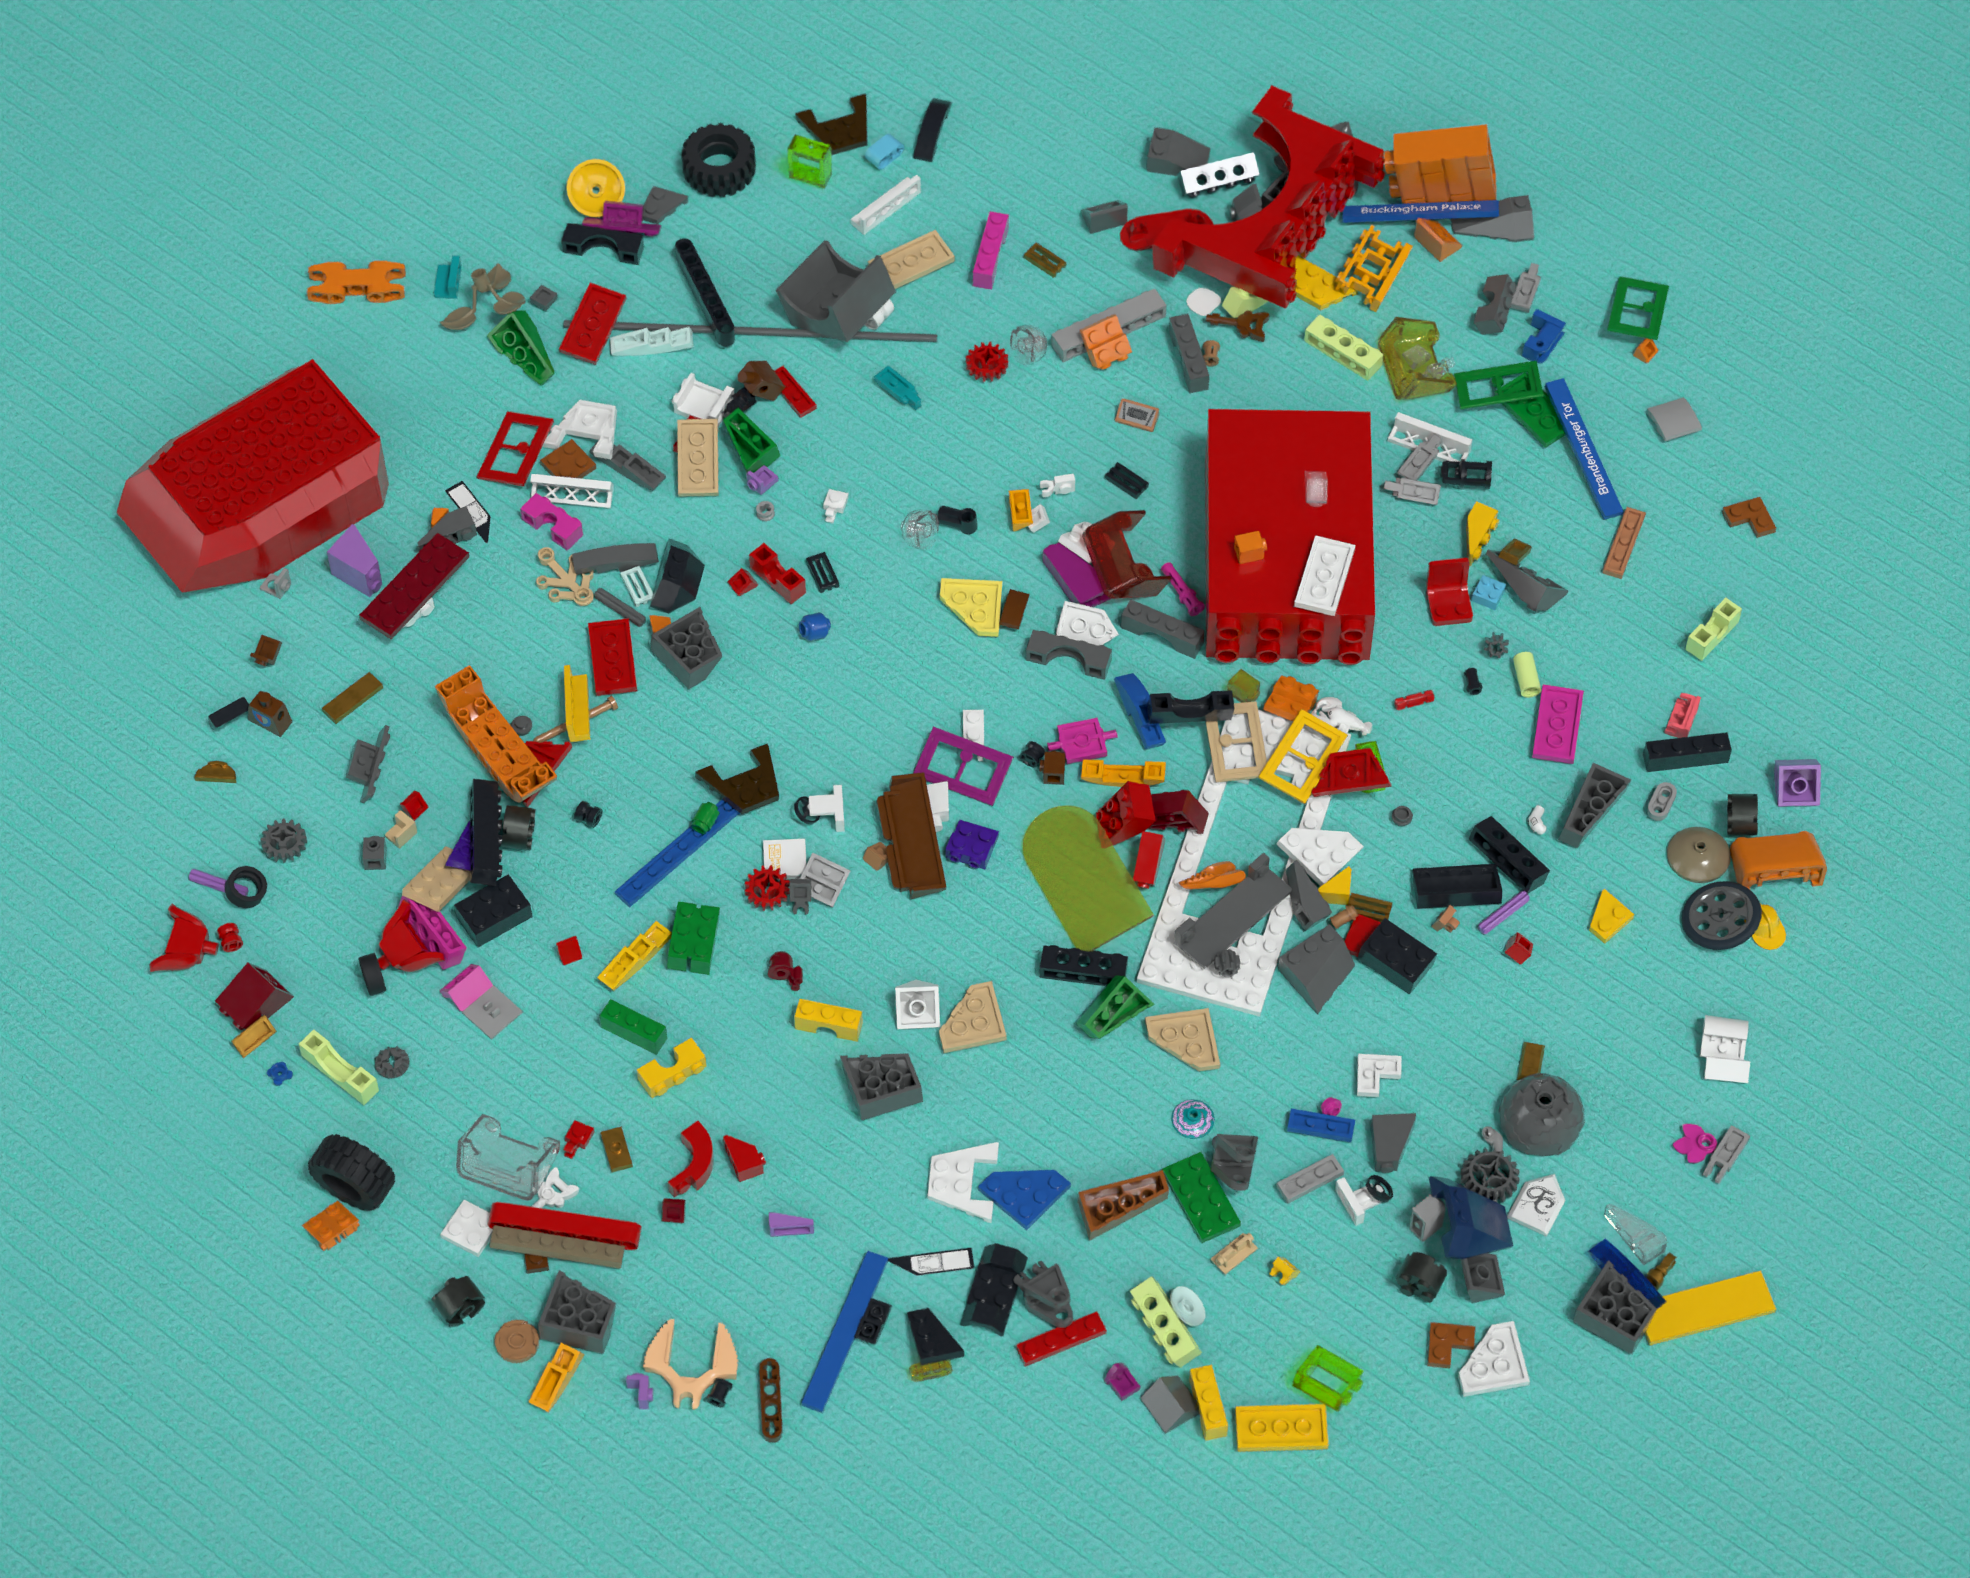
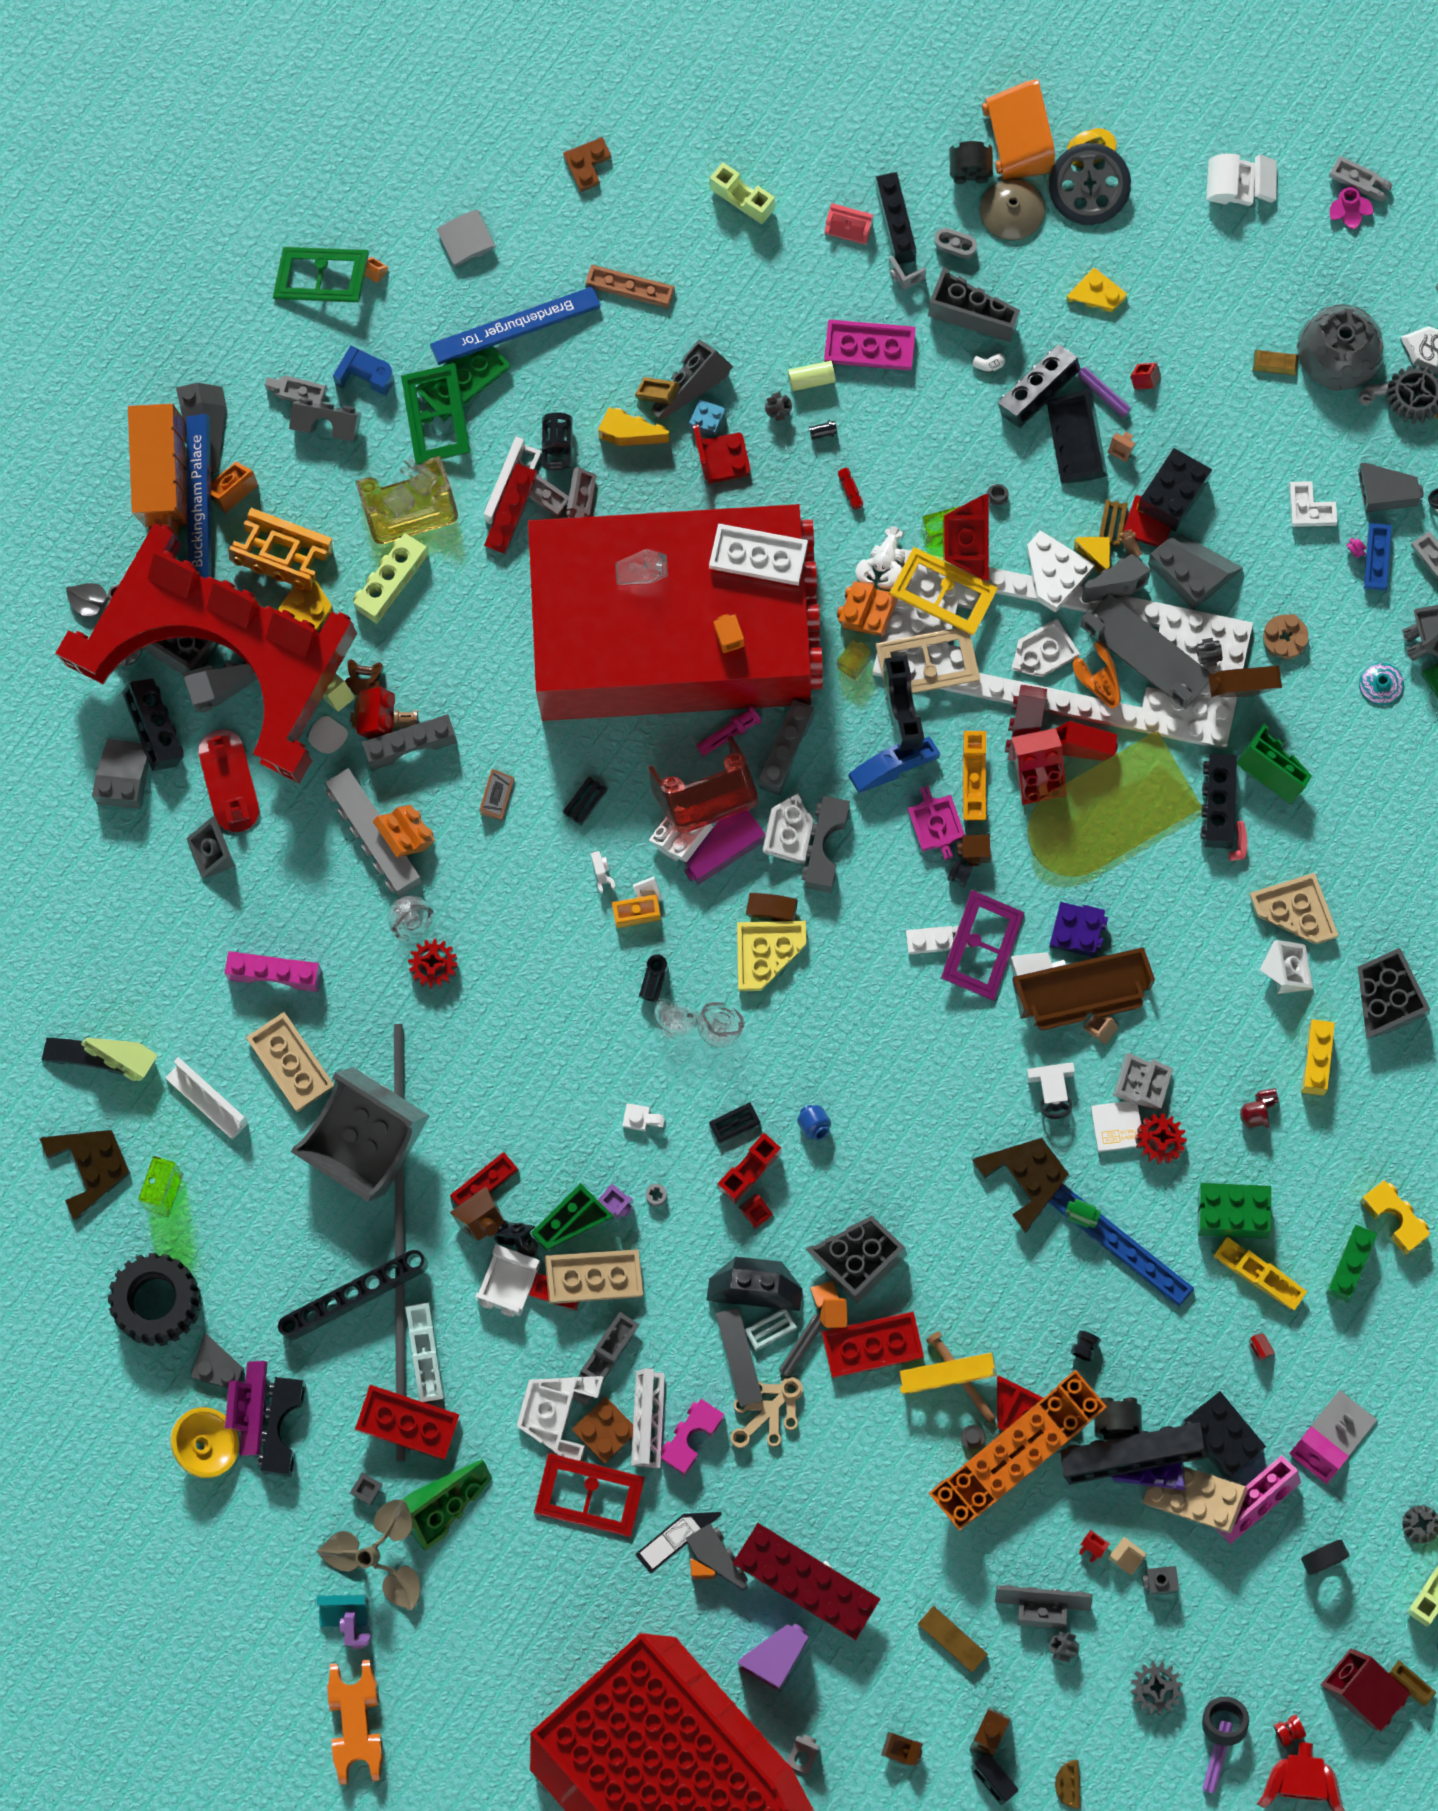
camera: 90 degrees left, 15 degrees up
(330, 774) = (1064, 1646): none -> dark grey gear
(403, 945) = (1285, 1526): red torso -> none
(429, 280) = (348, 1627): none -> medium lavender bracket
(641, 625) = (834, 1313): none -> orange slope
(800, 894) = (1169, 1099): dark grey plate -> none
(884, 151) = (128, 1107): medium azure beam -> none
(898, 387) = (473, 1061): teal hinge -> none
(908, 558) = (719, 1025): none -> clear cylinder
(925, 148) = (127, 1056): none -> yellowish green slope
(1042, 261) = (267, 928): pearl gold tile -> none
(1050, 982) = (1241, 851): none -> coral piece
(1186, 1036) = (1299, 690): tan plate -> none
(1194, 984) = (1245, 681): none -> reddish brown slope
(1216, 328) = (375, 712): none -> red brick
(1243, 841) = (1044, 650): none -> white tile
(1247, 1029) = (1291, 625): none -> medium nougat plate
(1405, 434) = (510, 508): none -> red plate
(1628, 751) = (898, 276): none -> light grey bracket
(1797, 782) = (919, 114): medium lavender slope -> none

